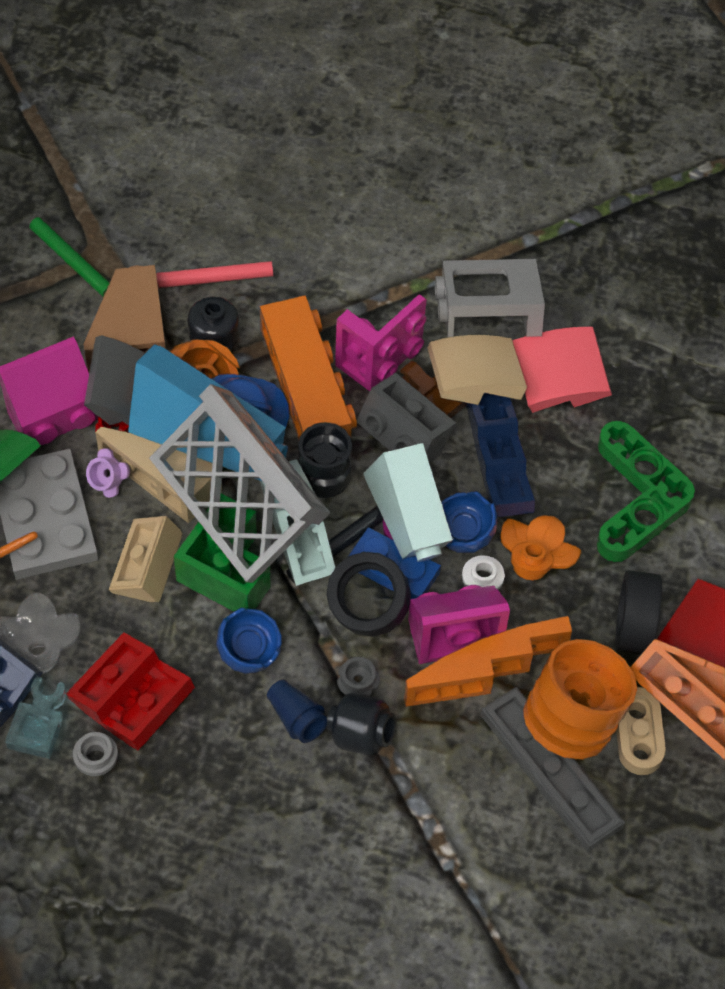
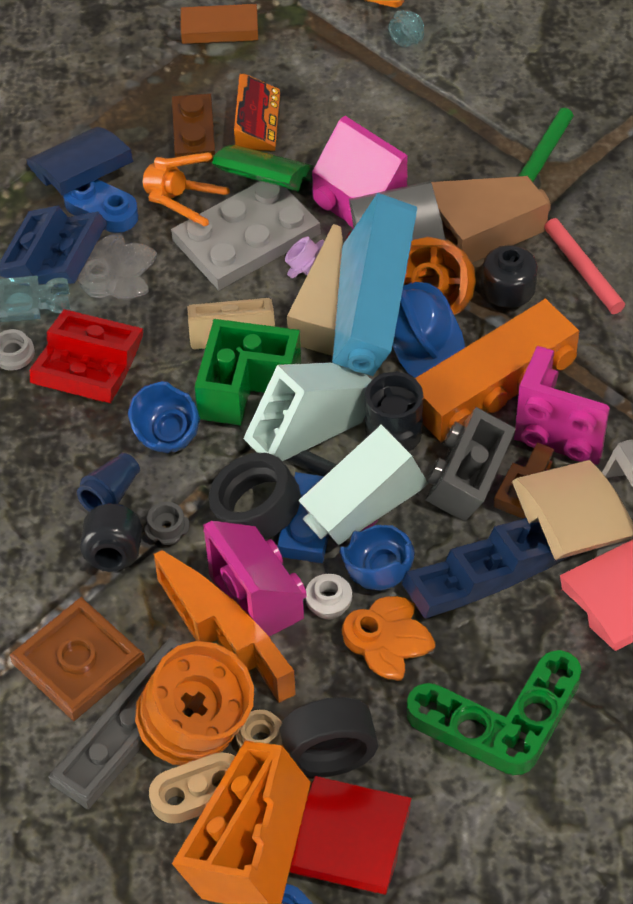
camera: 75 degrees right, 5 degrees down
(267, 462) = (316, 317): light grey fence -> none
(470, 793) = (77, 658): none -> dark orange tile

